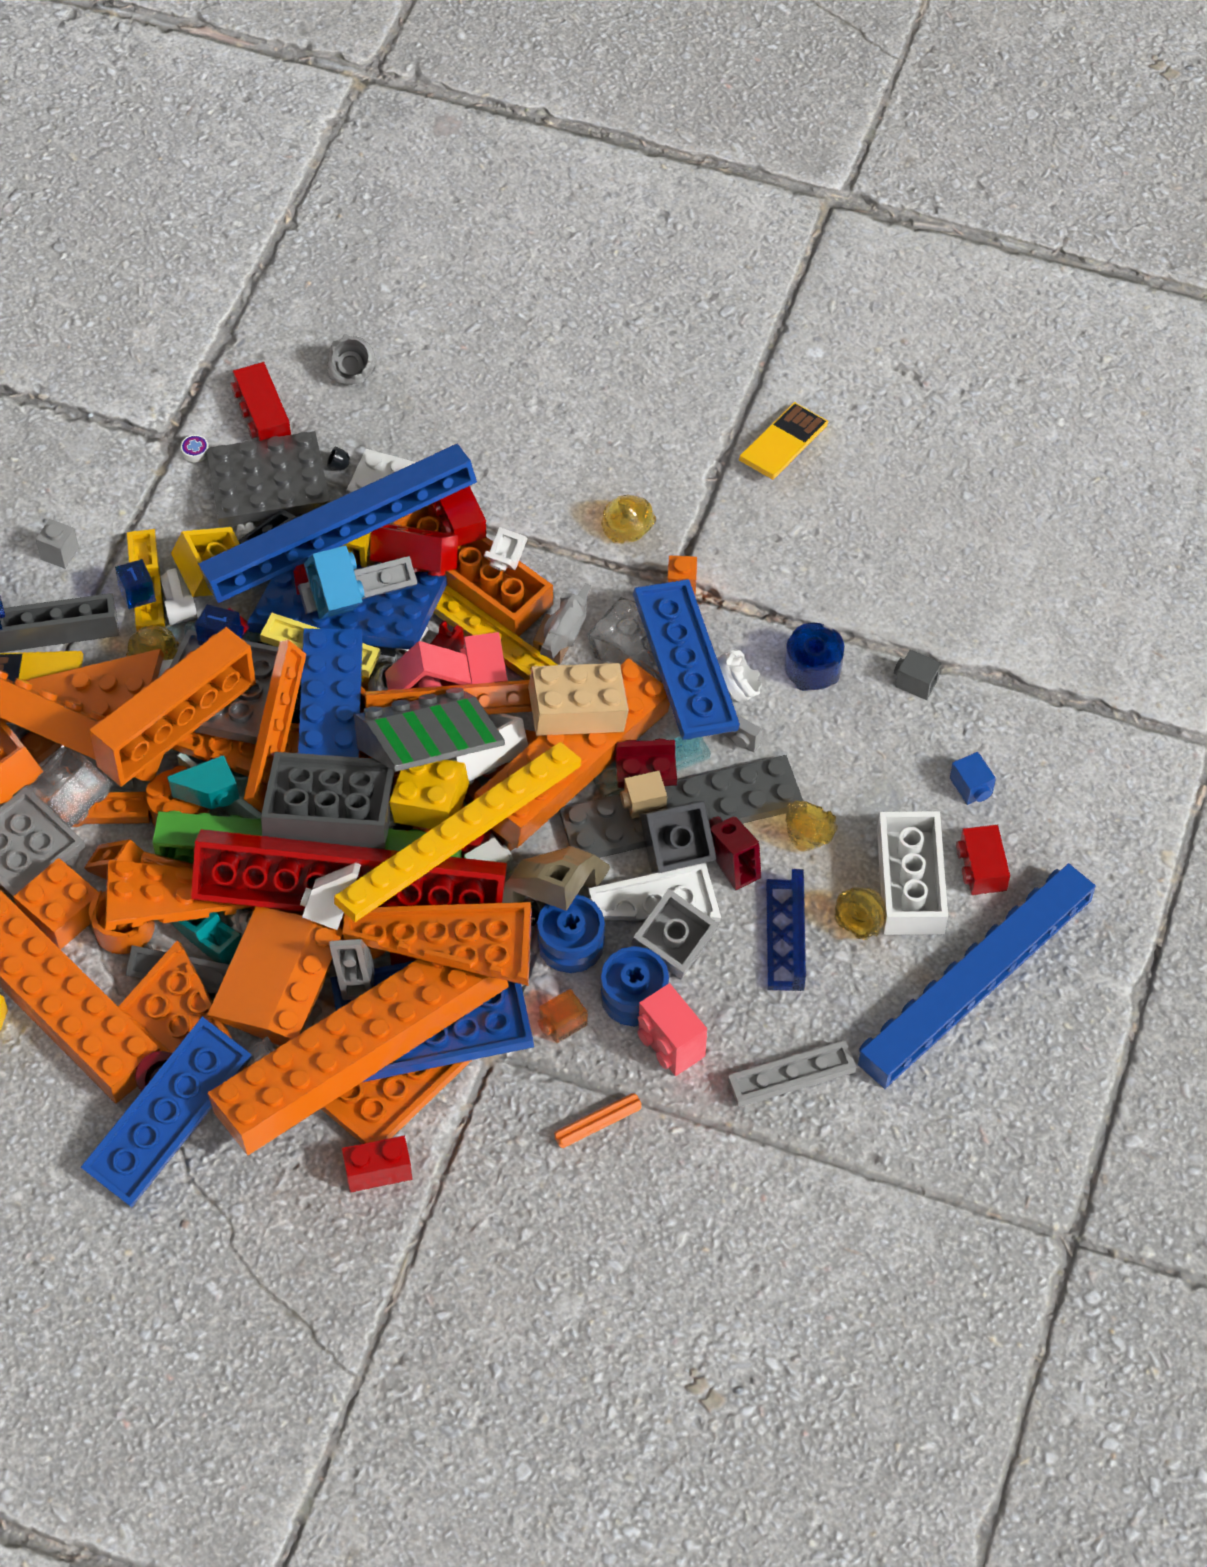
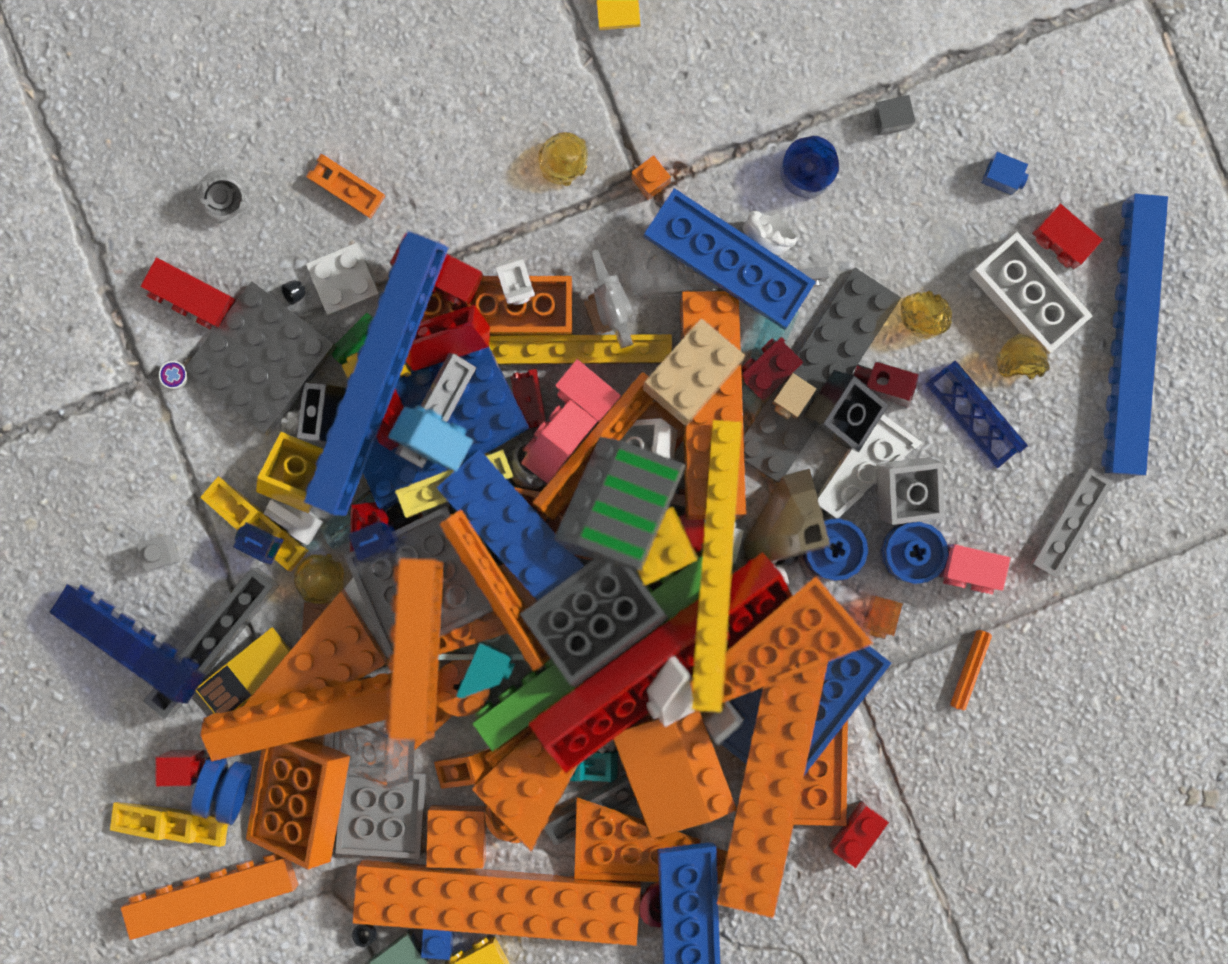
camera: 40 degrees left, 30 degrees up
(447, 421) = (346, 186): none -> orange plate

